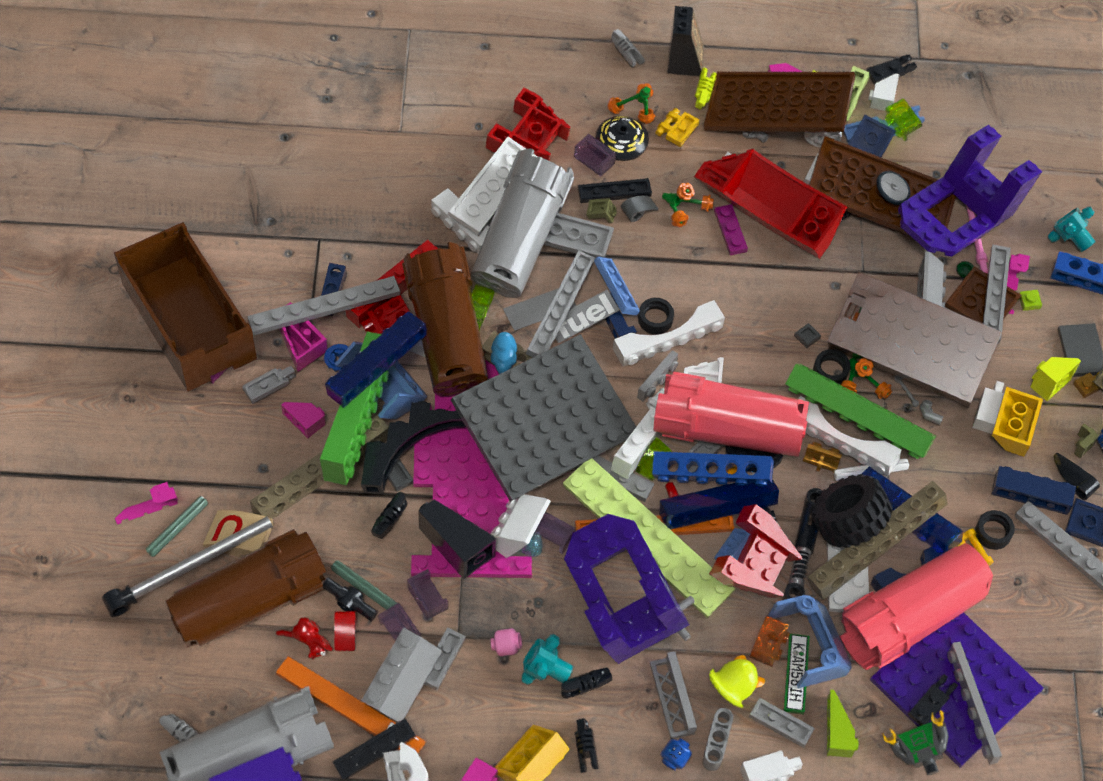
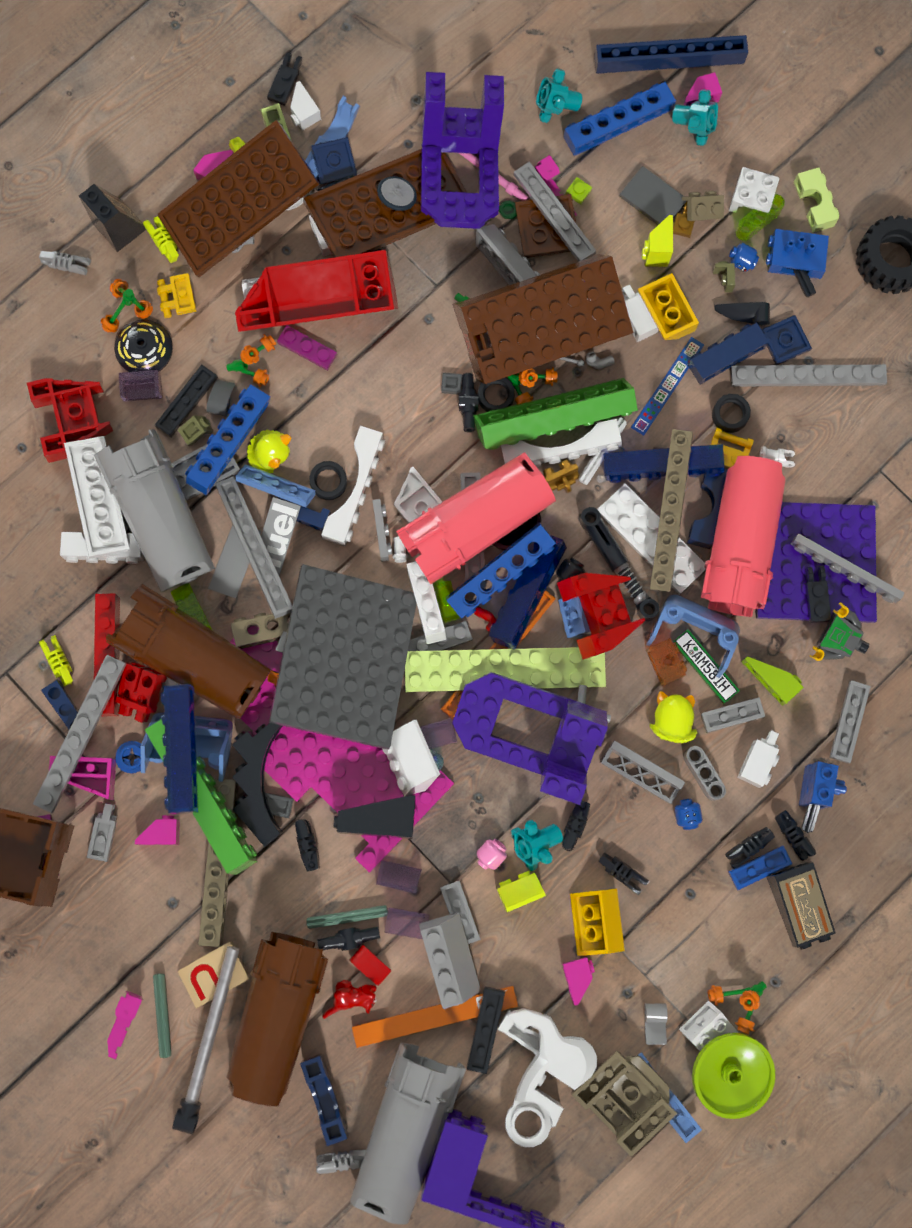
camera: 45 degrees left, 20 degrees up
(207, 697) = (325, 1099): none -> dark blue arch
(358, 260) = (57, 661): none -> neon yellow hinge
(498, 685) = (520, 892): none -> neon yellow slope
(503, 352) = (257, 634): dark azure arm -> none
(625, 234) = (204, 481): none -> blue brick
(636, 261) = (268, 450): none -> neon yellow hair
(807, 354) = (468, 402): none -> black pin
(851, 511) = (656, 514): black tyre -> none
(902, 118) = (342, 120): clear neon green bracket -> none
(961, 474) = (666, 387): none -> sticker
(1002, 589) = (778, 455): none -> white piece

